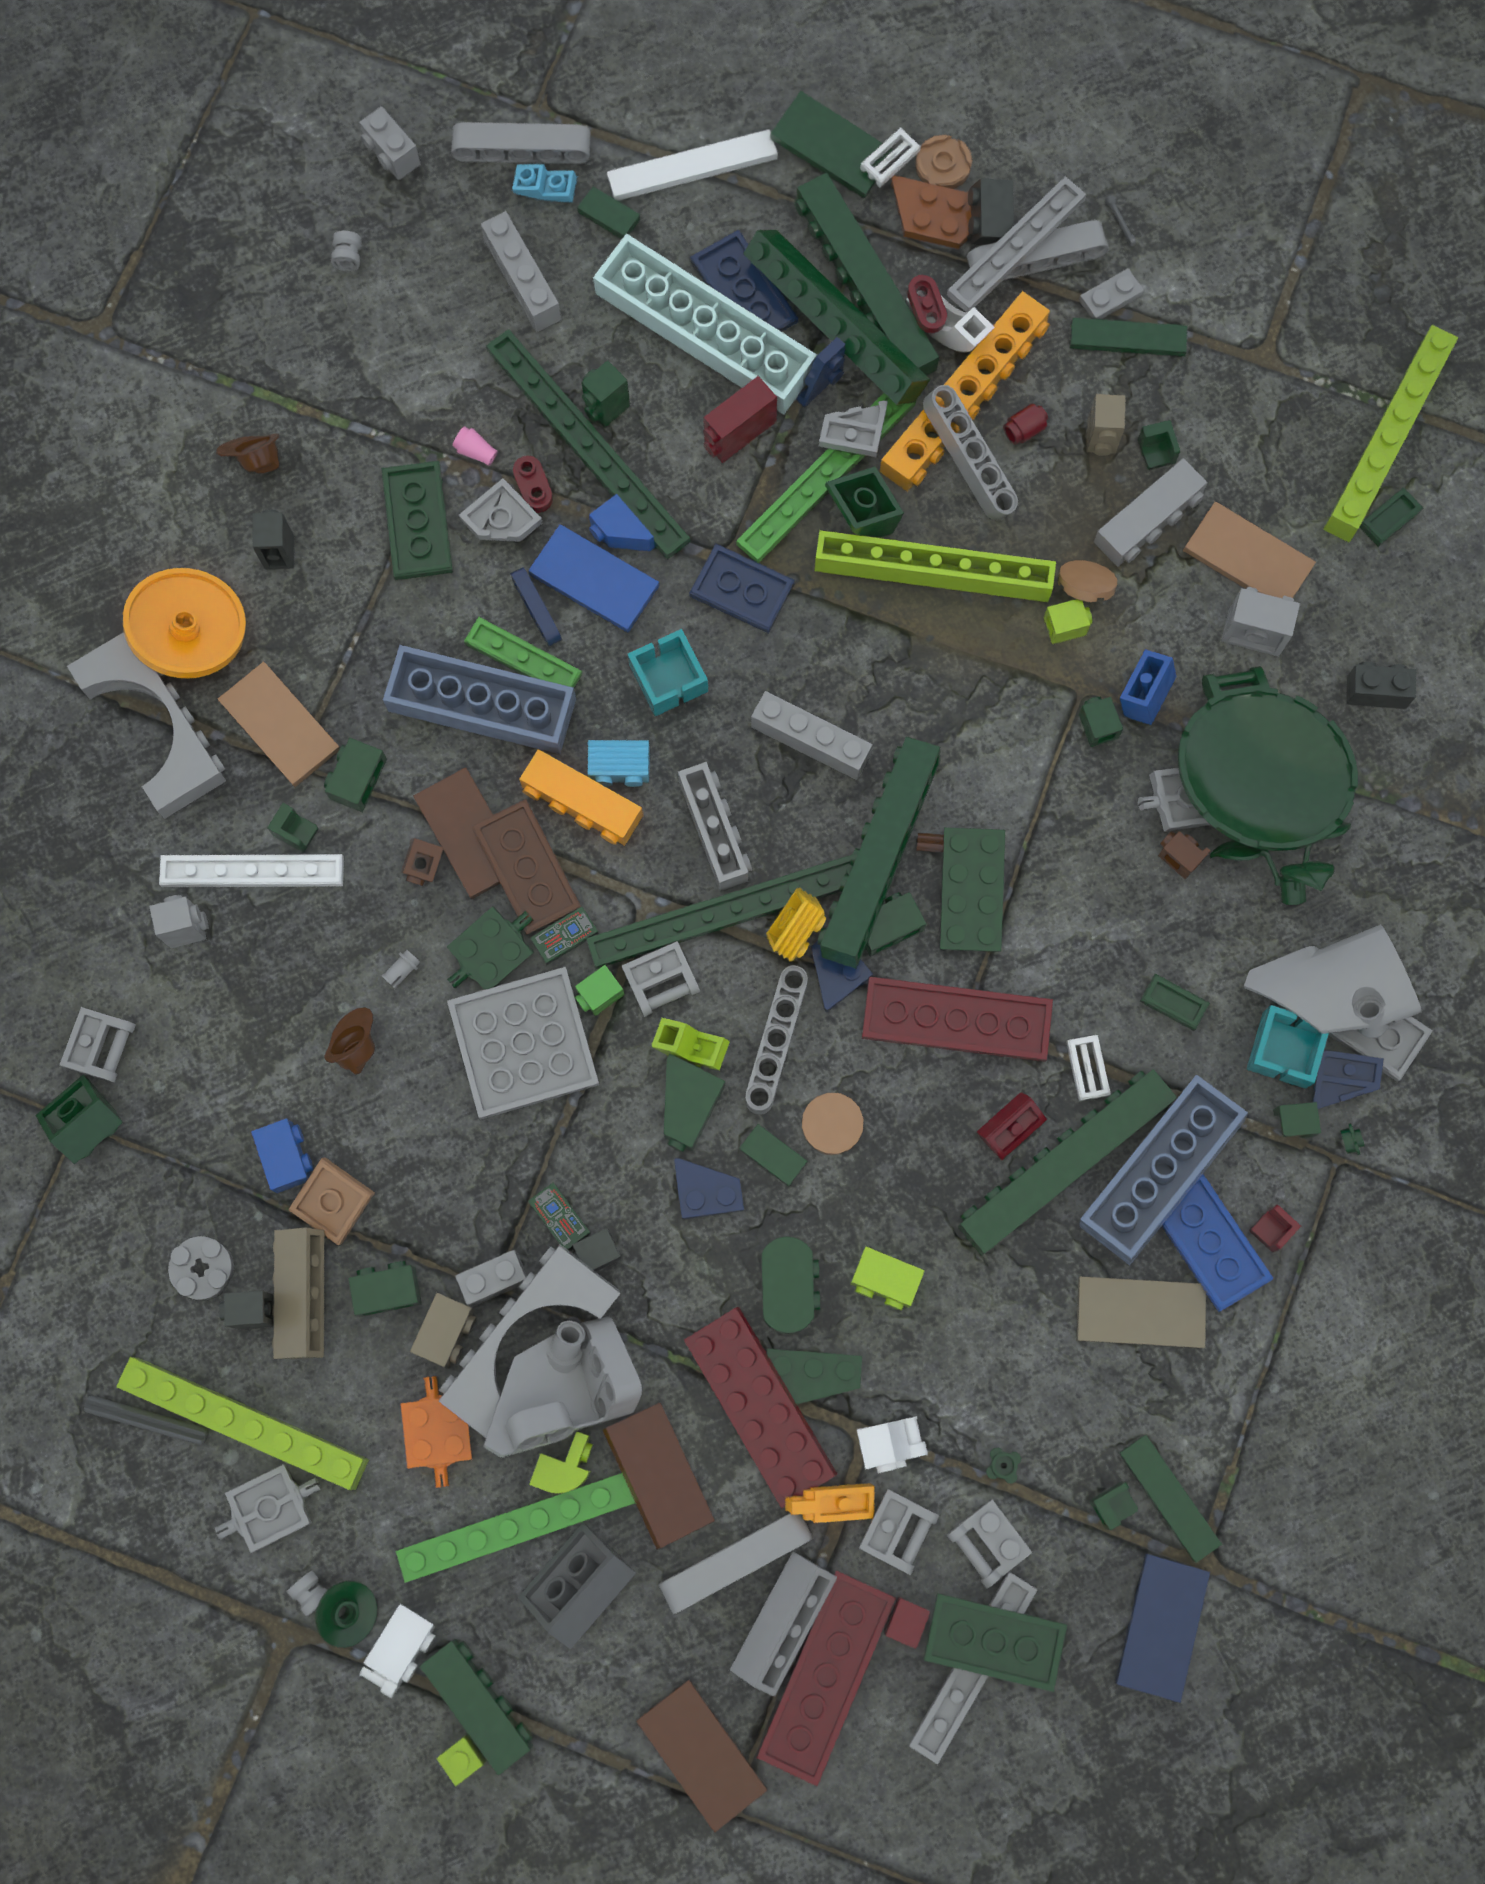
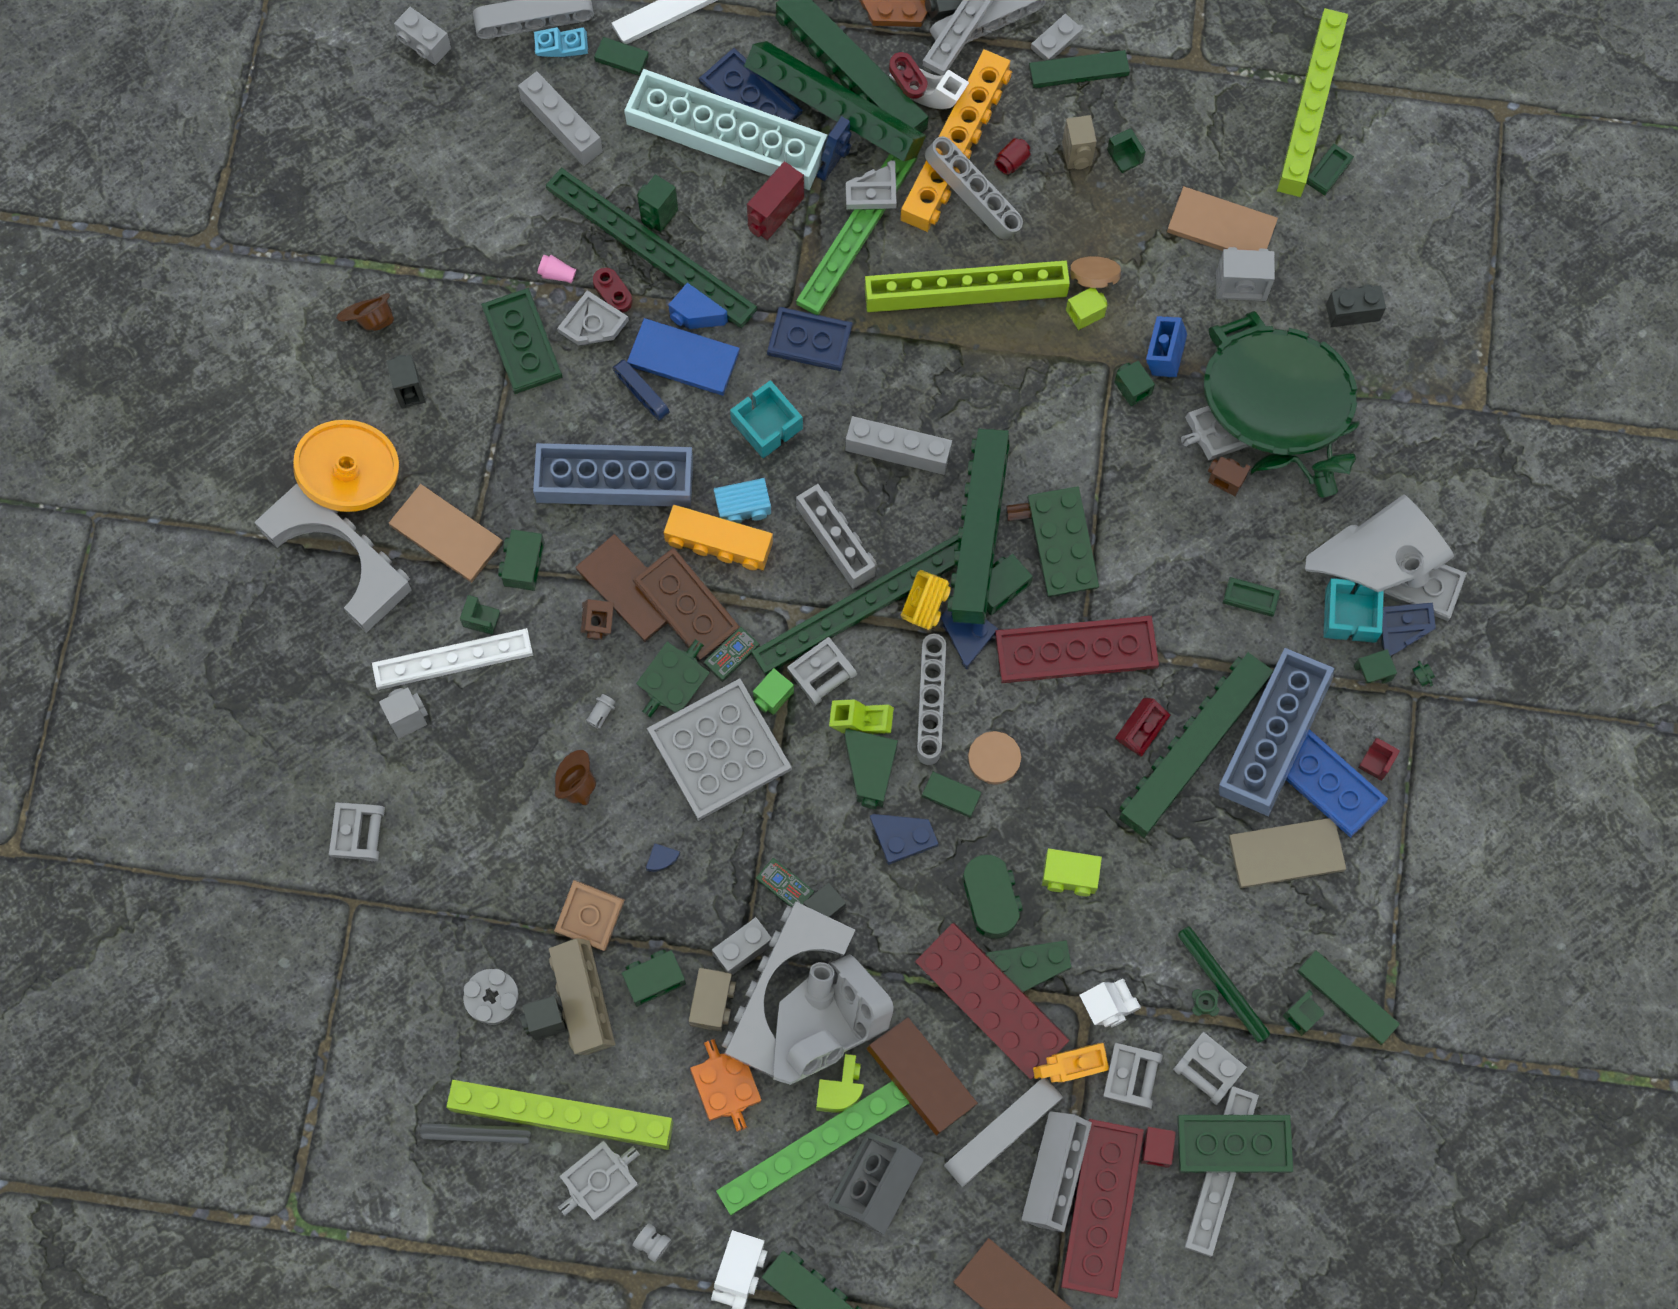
camera: 15 degrees left, 5 degrees down
(78, 1120) = (356, 896): dark green slope -> none
(282, 1155) = (538, 886): blue brick -> none
(346, 246) = (407, 133): light grey wheel -> none
(355, 1622) = (696, 1248): dark green dish -> none
(428, 1153) = (661, 858): none -> dark blue tile
(519, 654) = (634, 432): bright green tile -> none
(866, 503) = (898, 246): dark green slope -> none
(1030, 1449) = (1224, 984): none -> dark green axle
(1092, 1094) = (1185, 670): white tile -> none
(1150, 513) = (1133, 206): light grey brick -> none
(1162, 1628) = (1368, 1103): dark blue tile -> none

